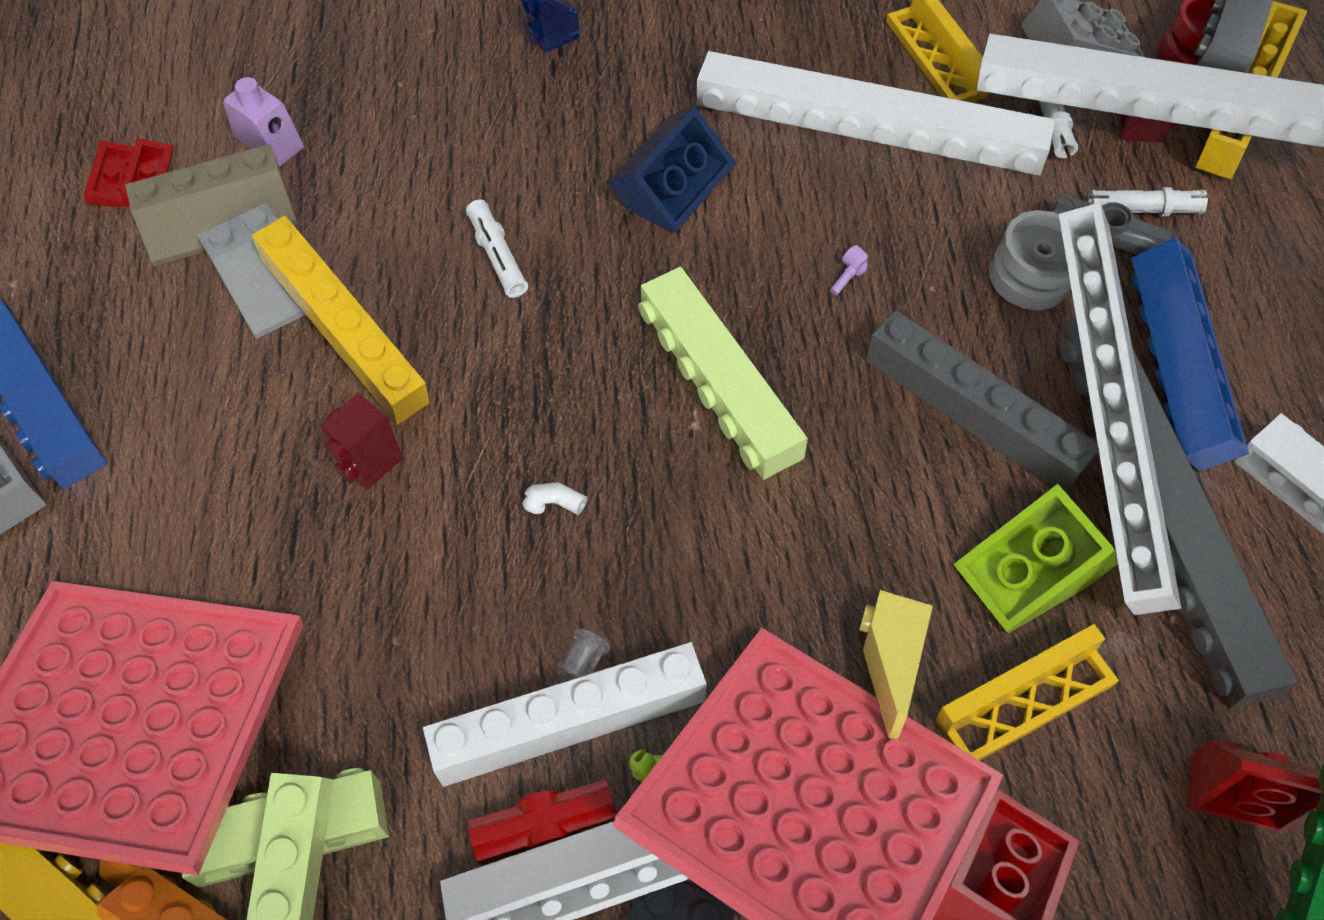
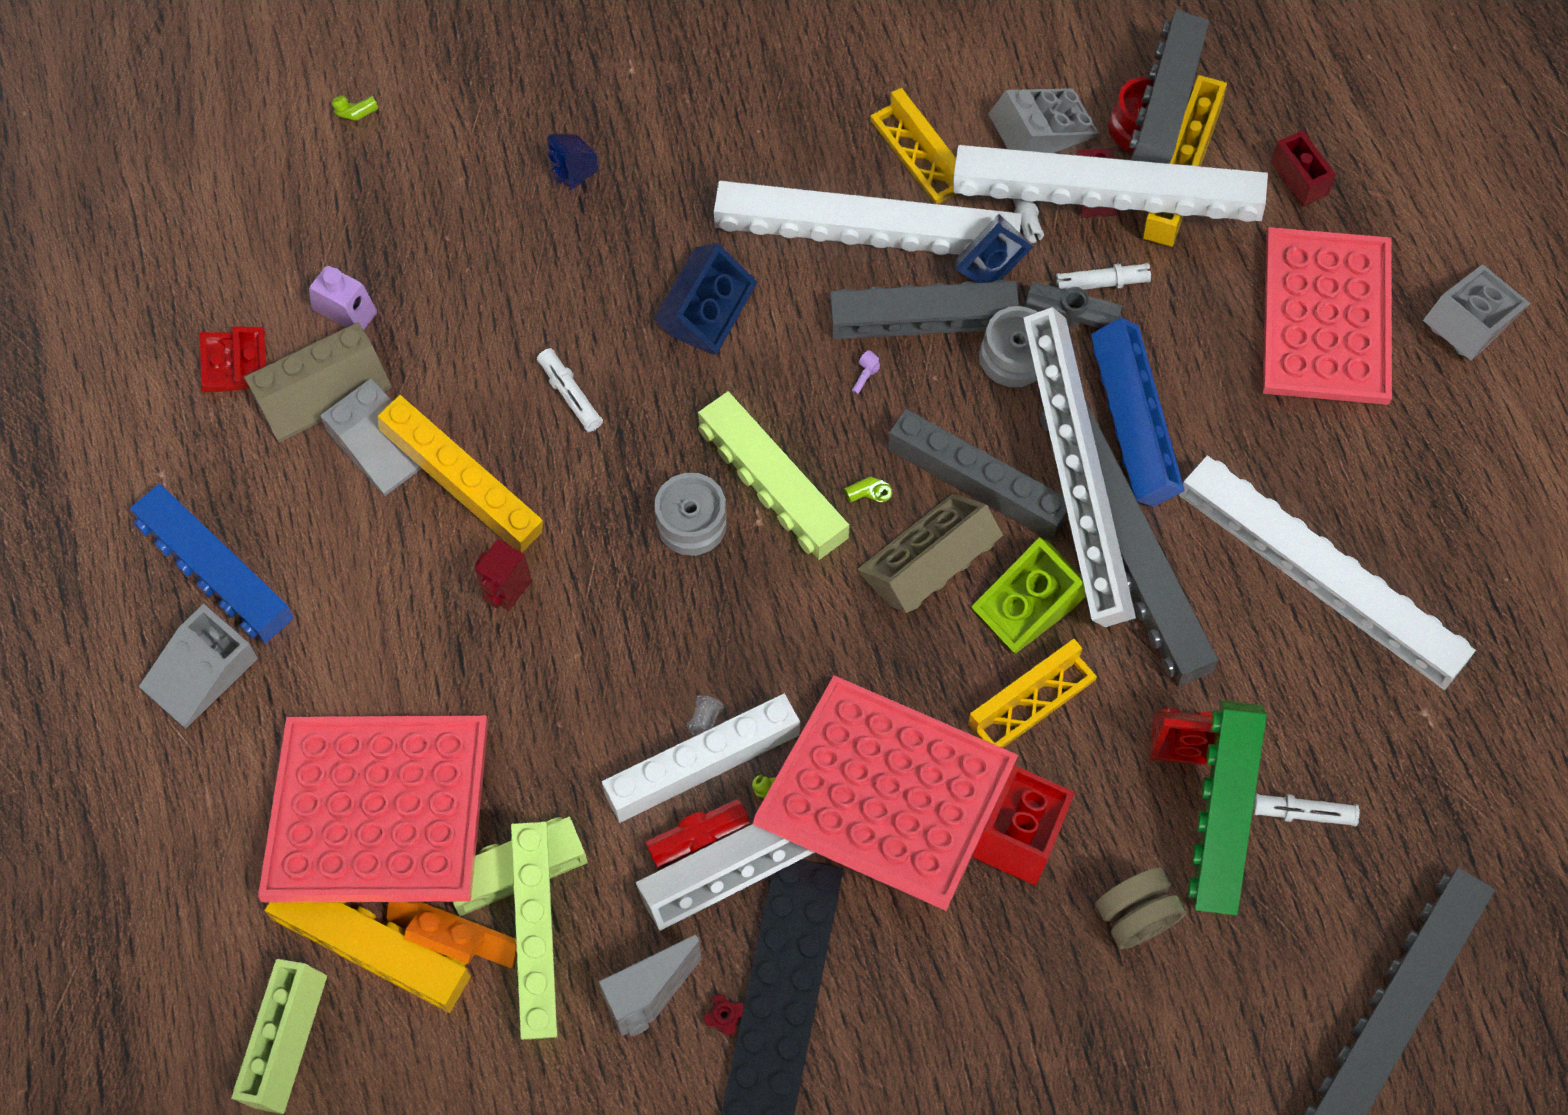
camera: 10 degrees left, 5 degrees up
(555, 493) = (658, 594): white arm -> none
(610, 400) = (691, 514): none -> light grey wheel
(837, 401) = (870, 488): none -> lime arm
(893, 653) = (931, 678): light yellow slope -> none
(909, 488) = (931, 552): none -> dark tan slope
(920, 208) = (918, 309): none -> dark grey brick
(1020, 155) = (993, 252): none -> dark blue slope

